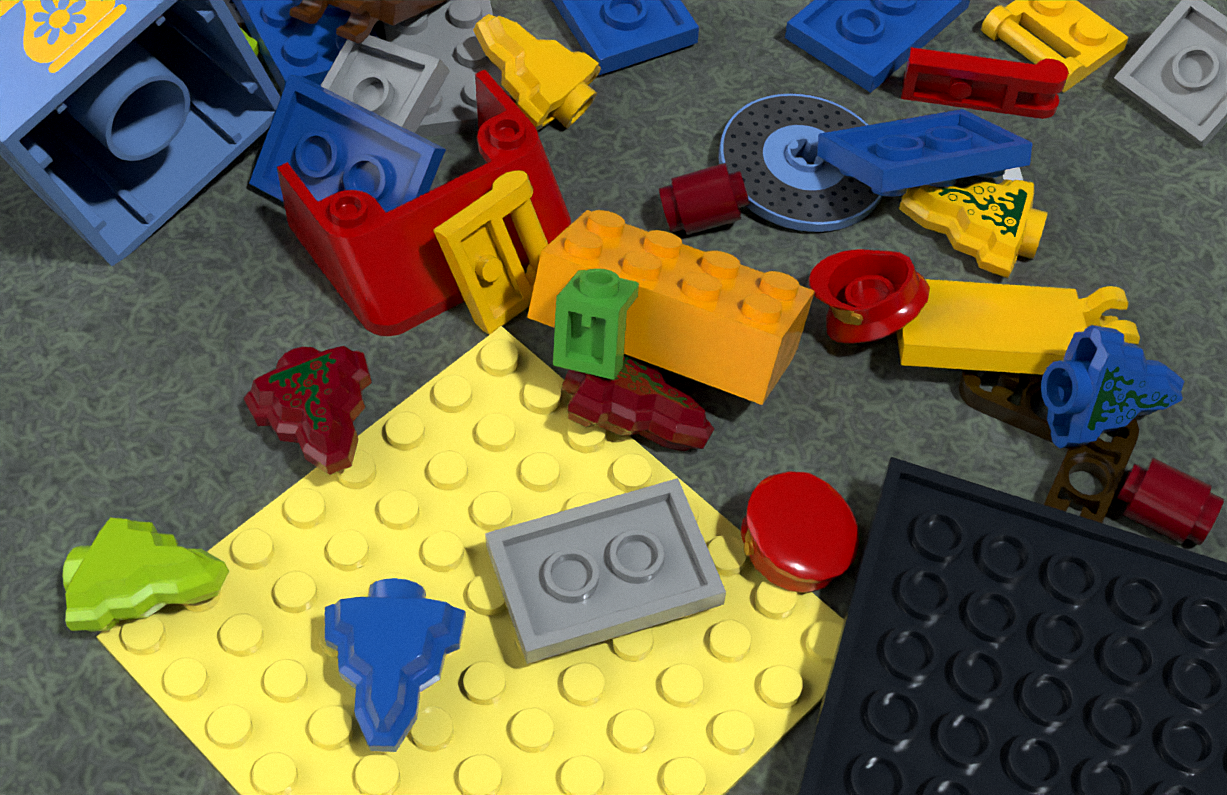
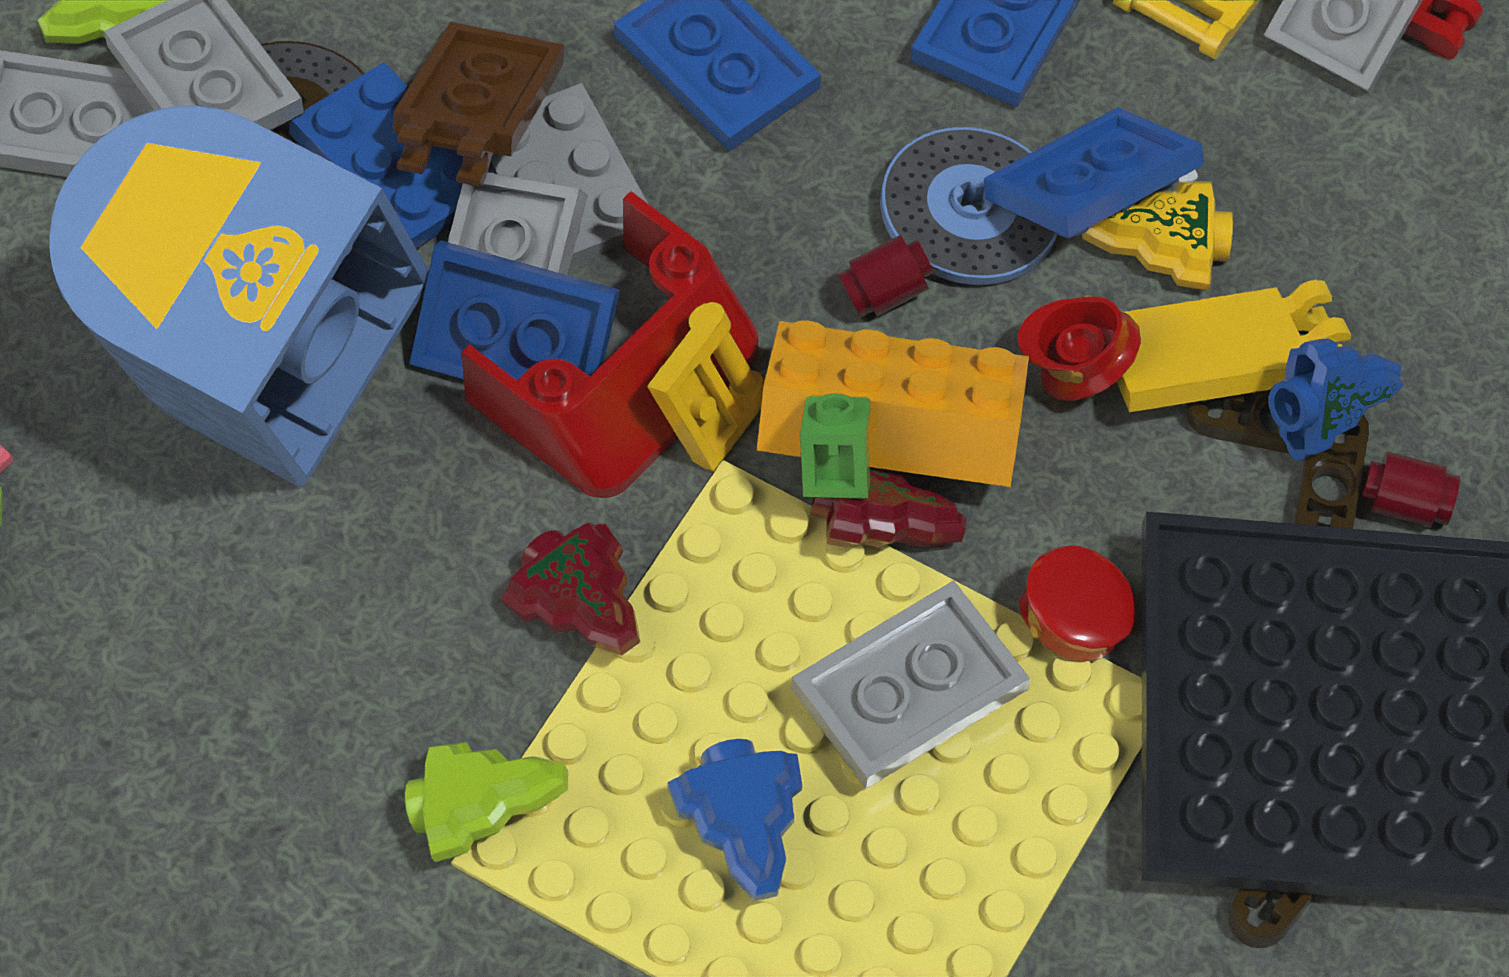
camera: 15 degrees left, 5 degrees up
(538, 73) = (672, 169): yellow rock -> none
(984, 83) = (1133, 73): red plate -> none

